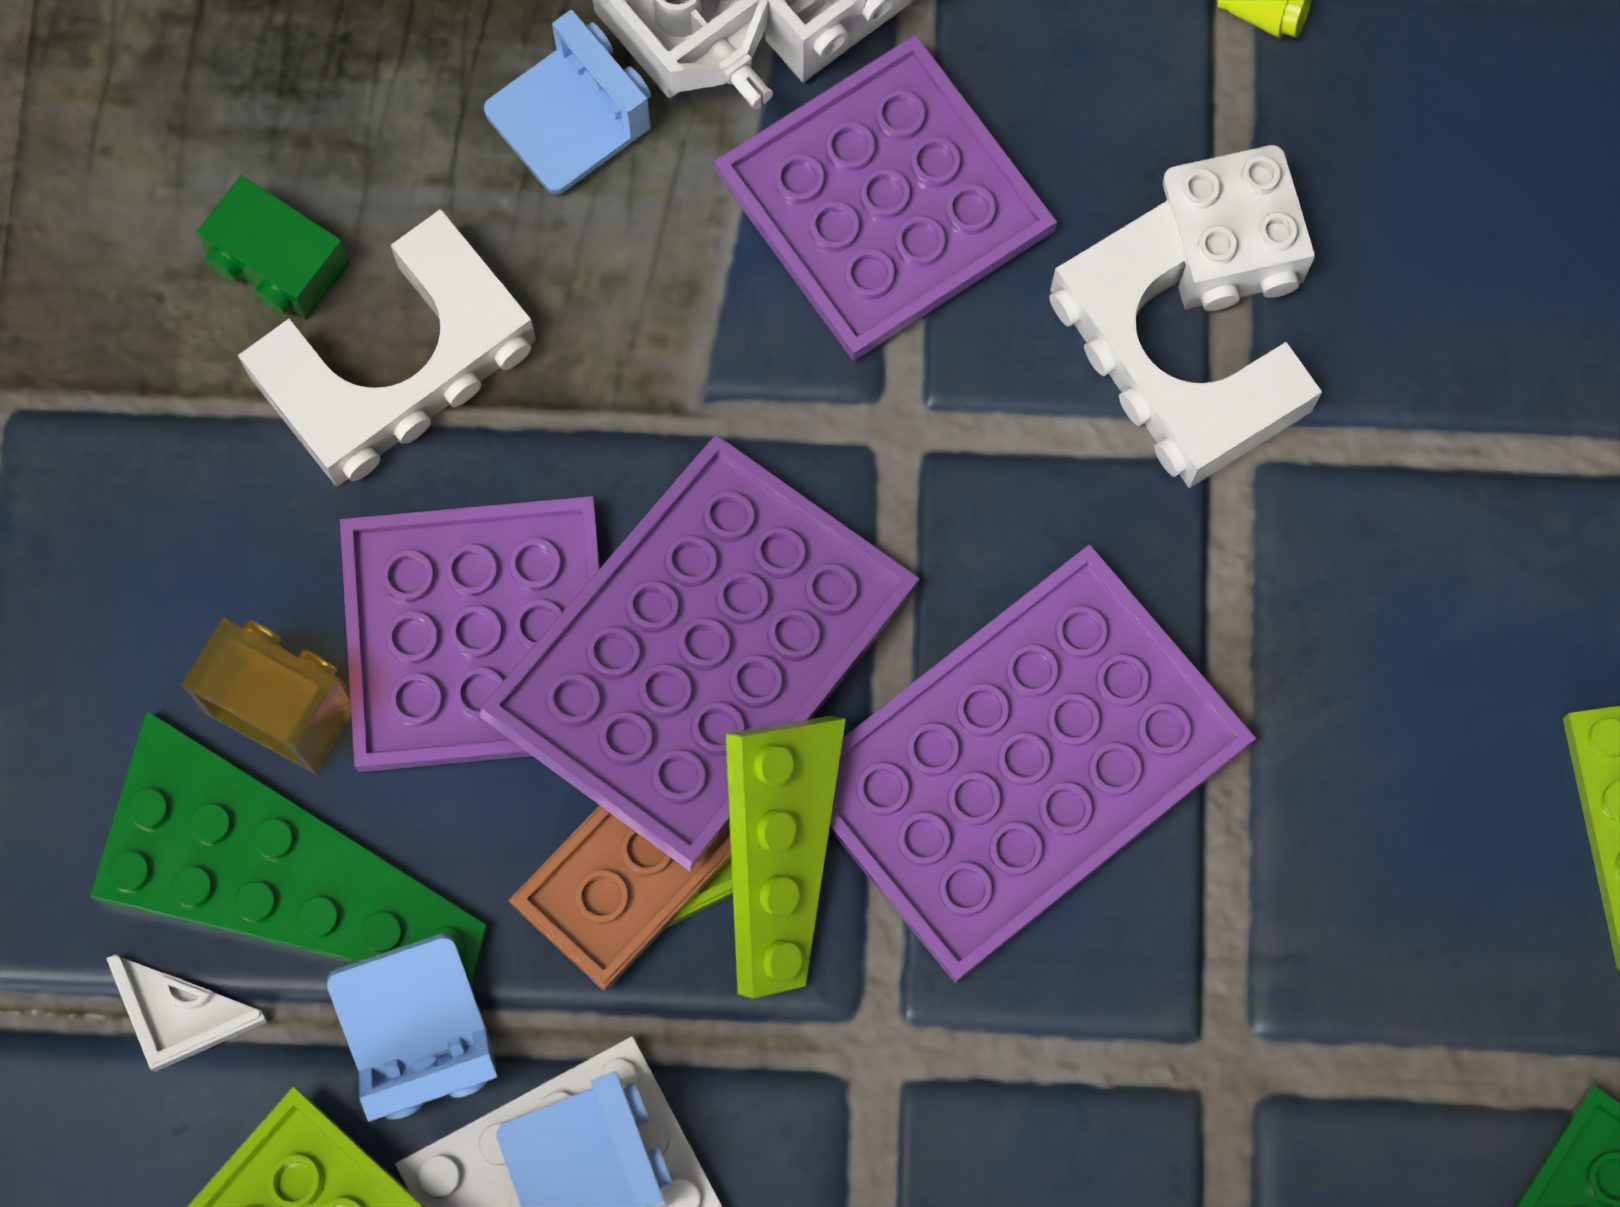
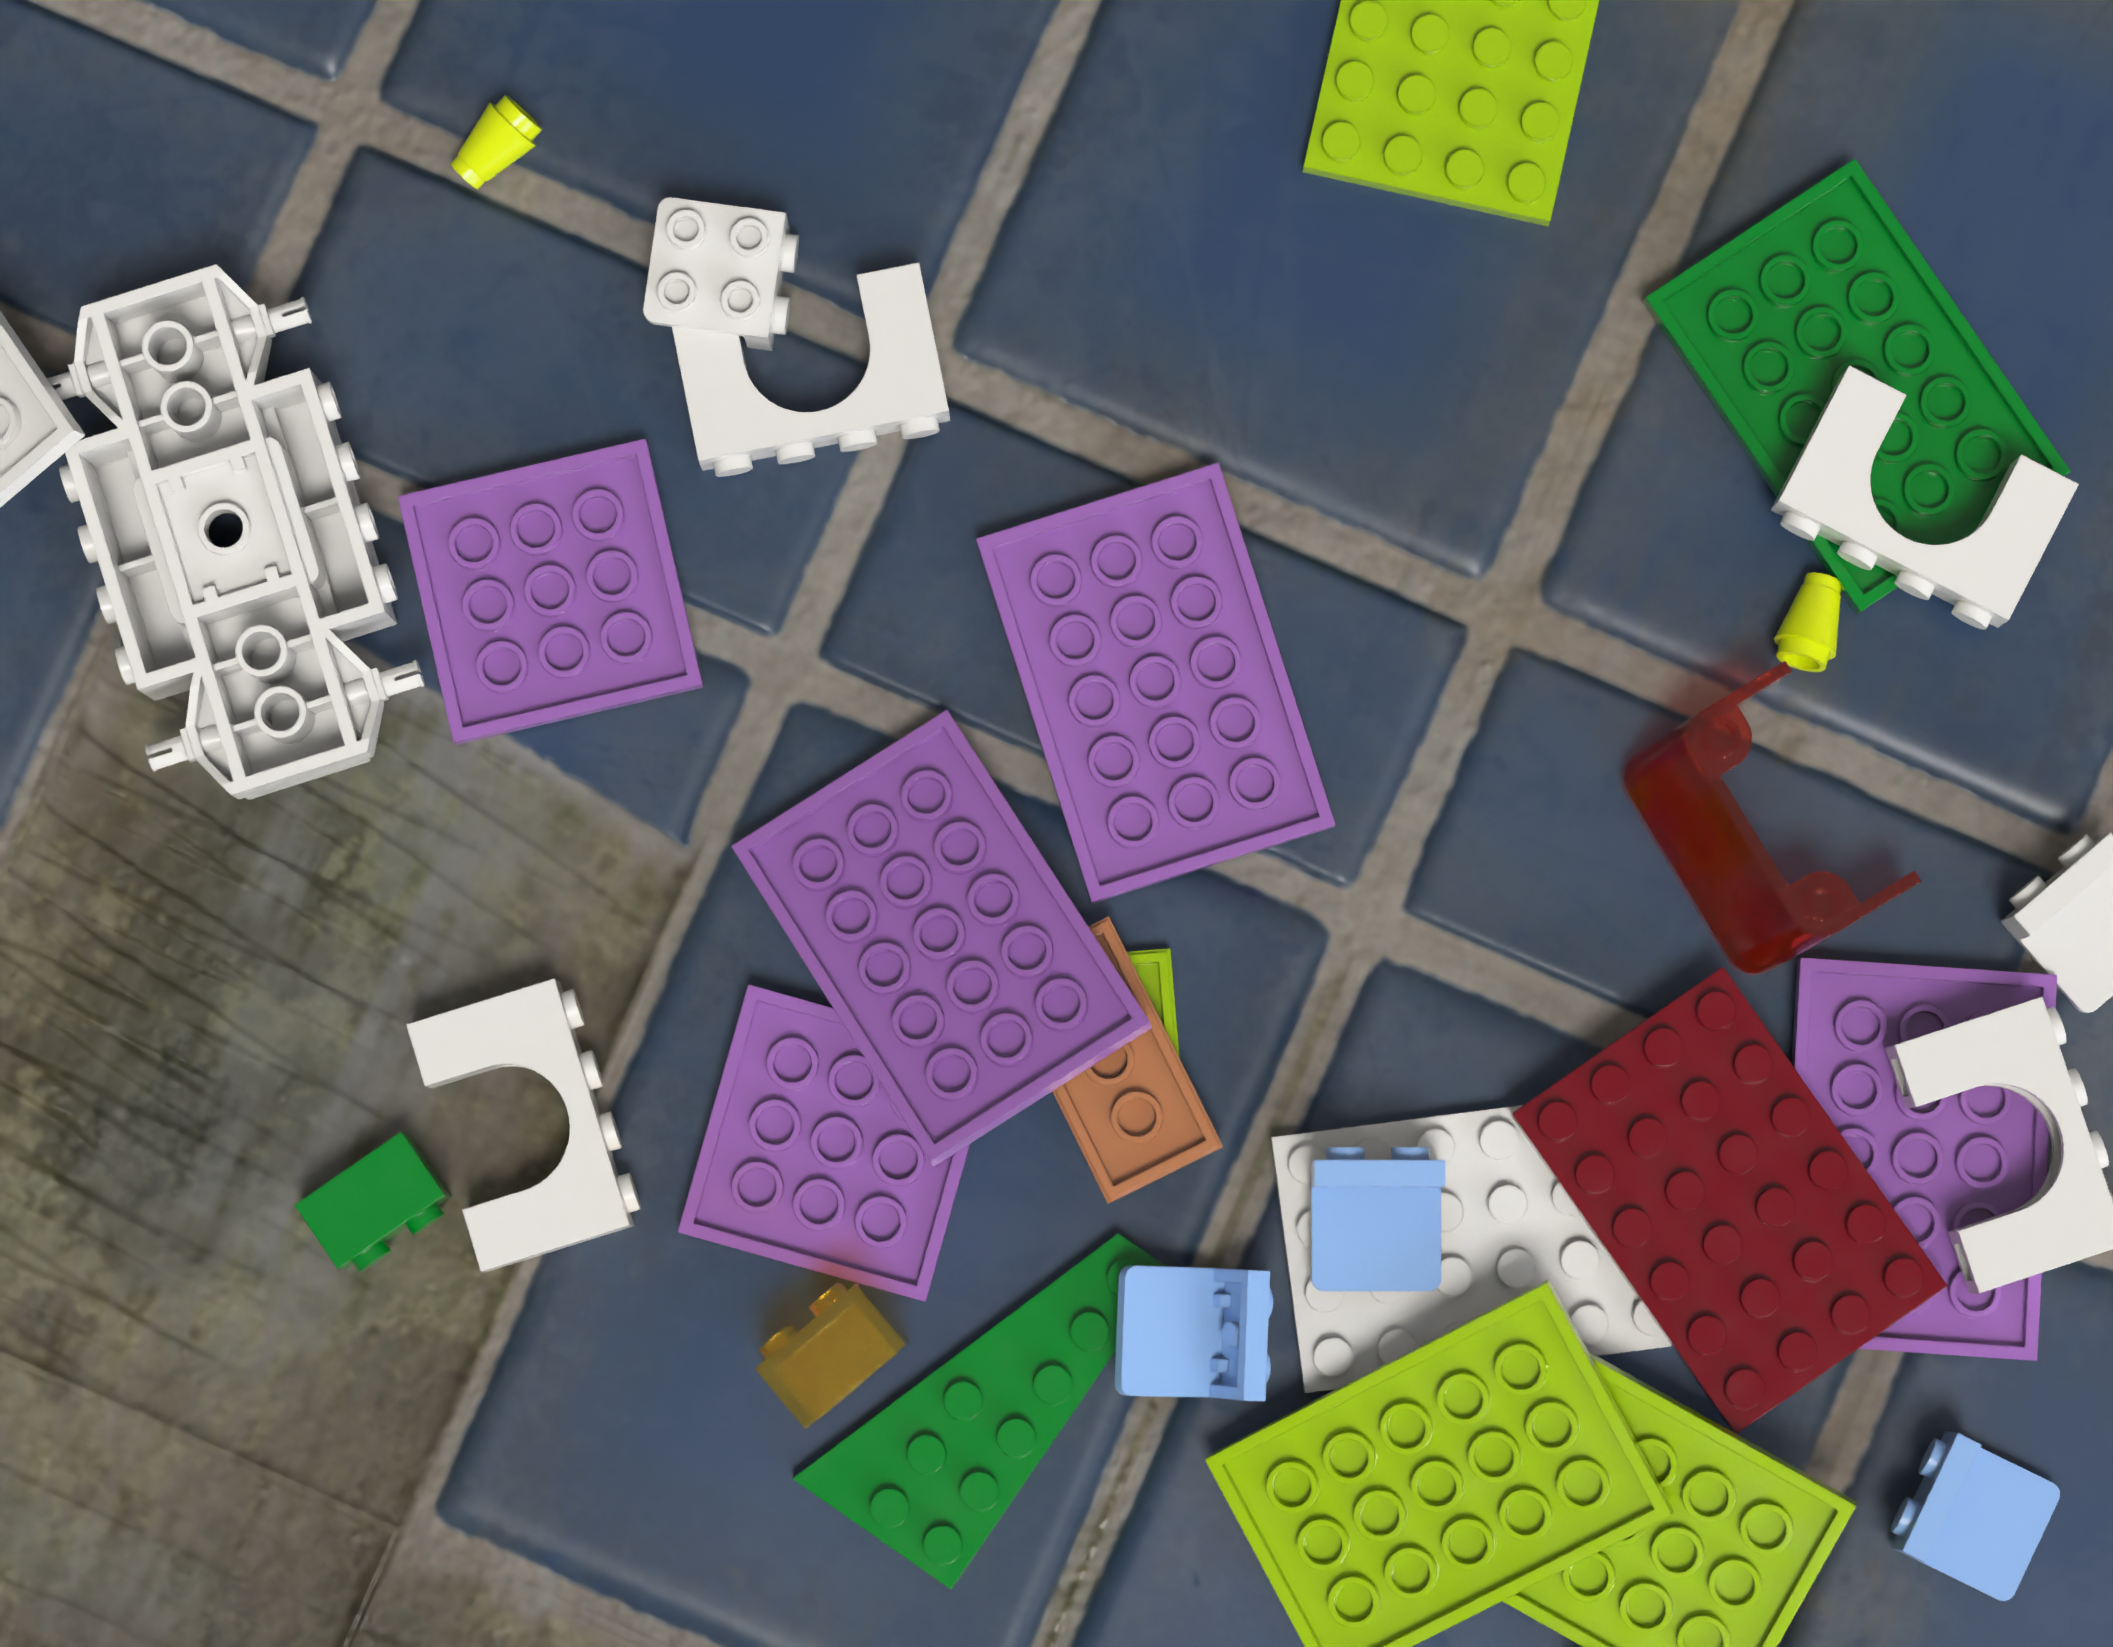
camera: 65 degrees left, 10 degrees up
(177, 1016) = (1090, 1548): white tile -> none
(571, 107) = (340, 862): light blue bracket -> none
(779, 833) = (1143, 932): lime wing -> none

